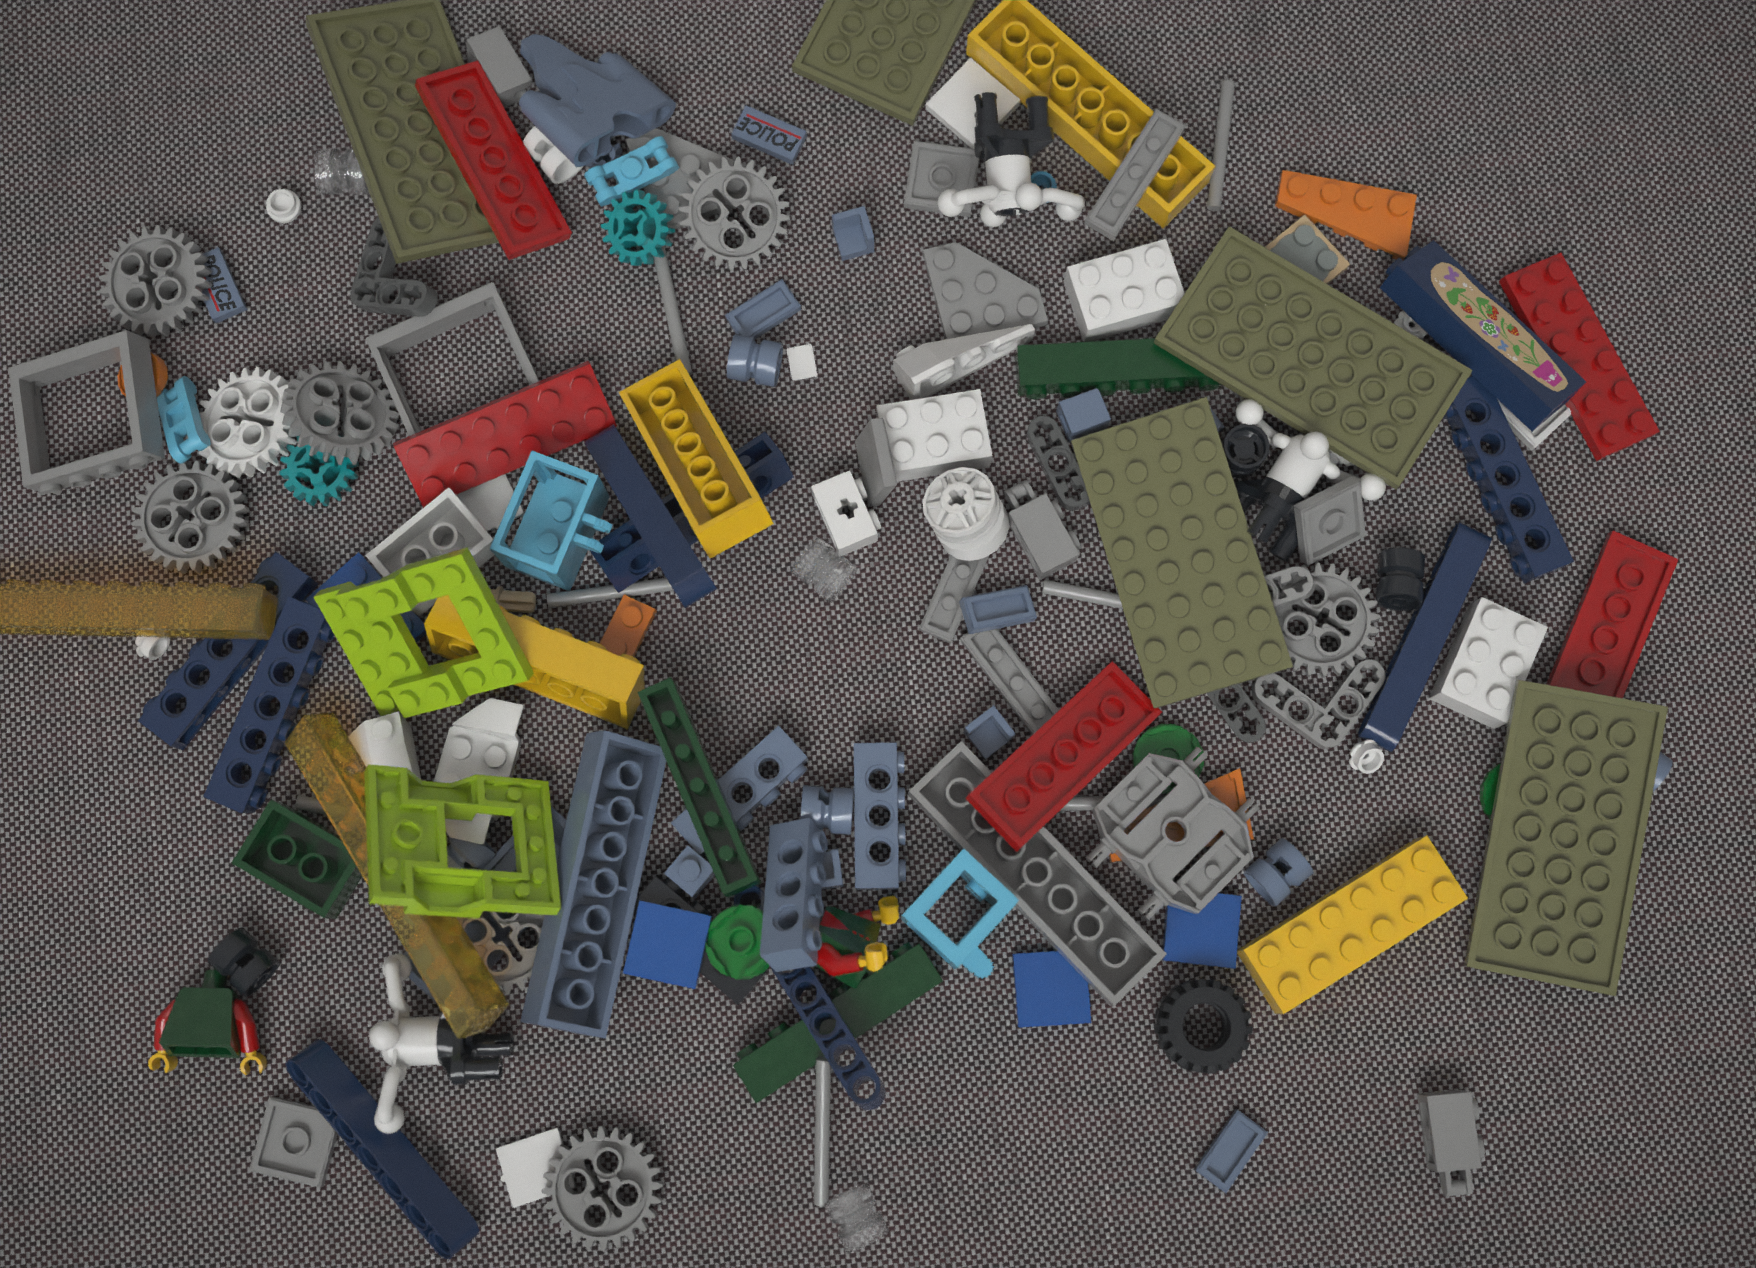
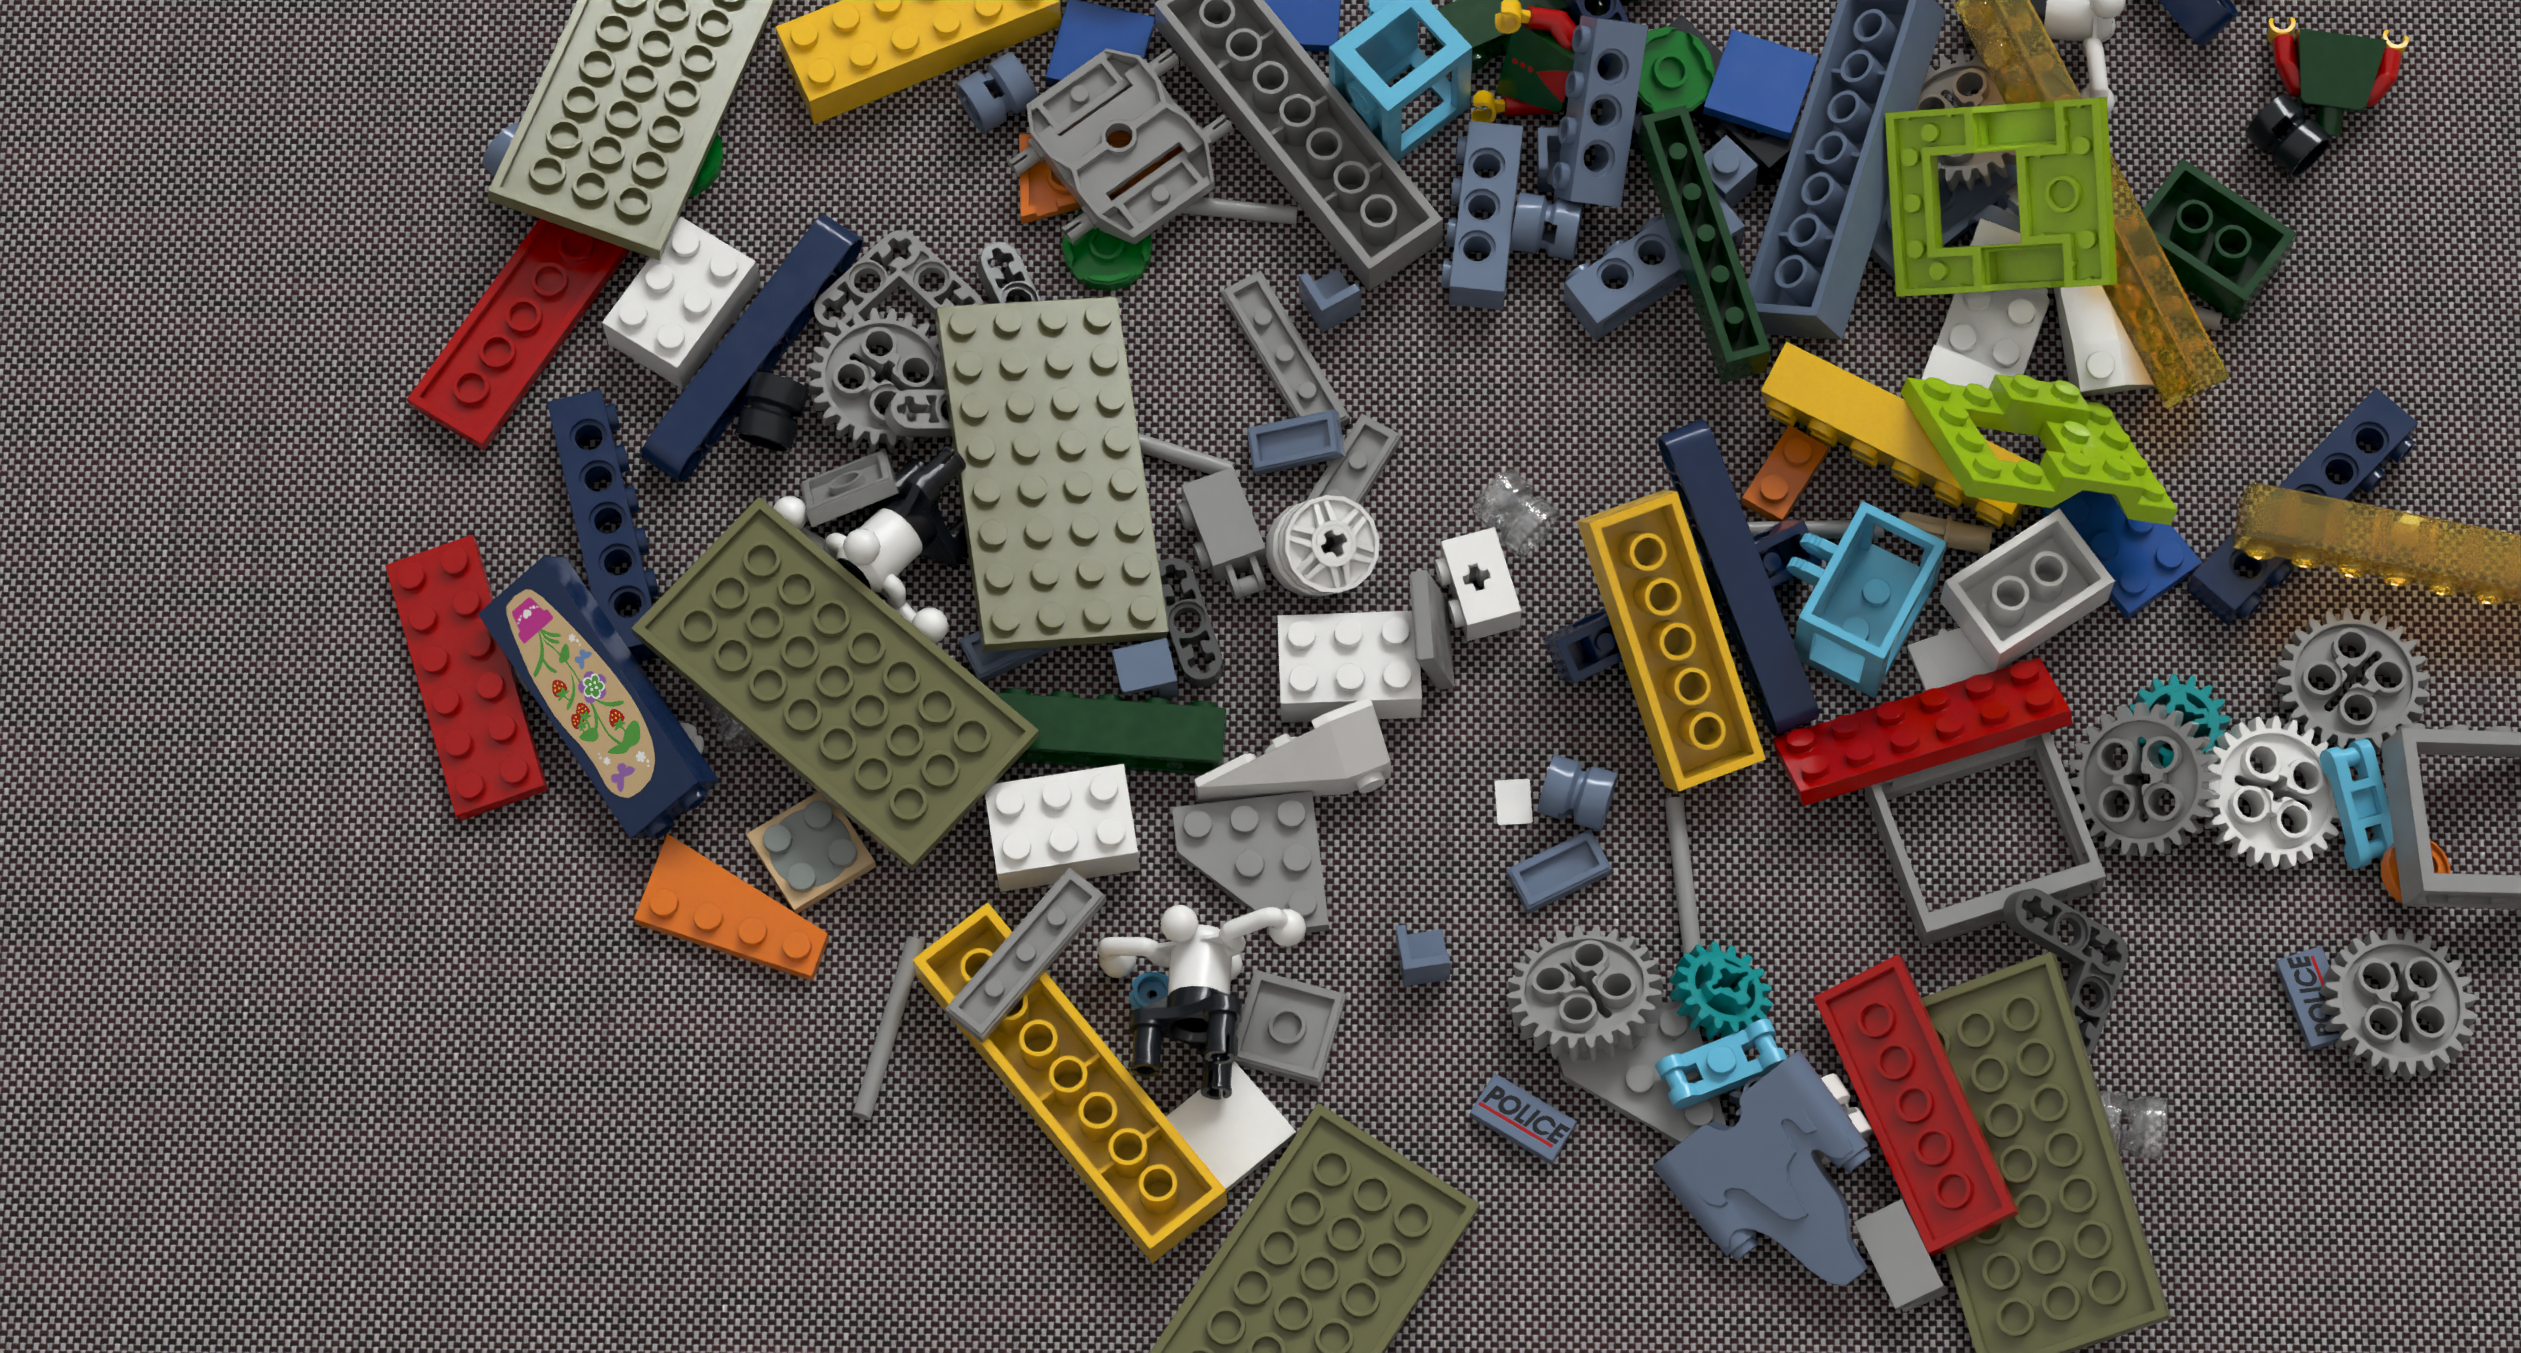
camera: 170 degrees left, 10 degrees down
(226, 783) = (2302, 337): dark blue brick -> none
(283, 206) = (2218, 1098): white plate -> none
(1063, 756) = (1240, 242): red plate -> none
(1245, 449) = (945, 585): black wheel -> none
(1366, 756) = (858, 214): white plate -> none

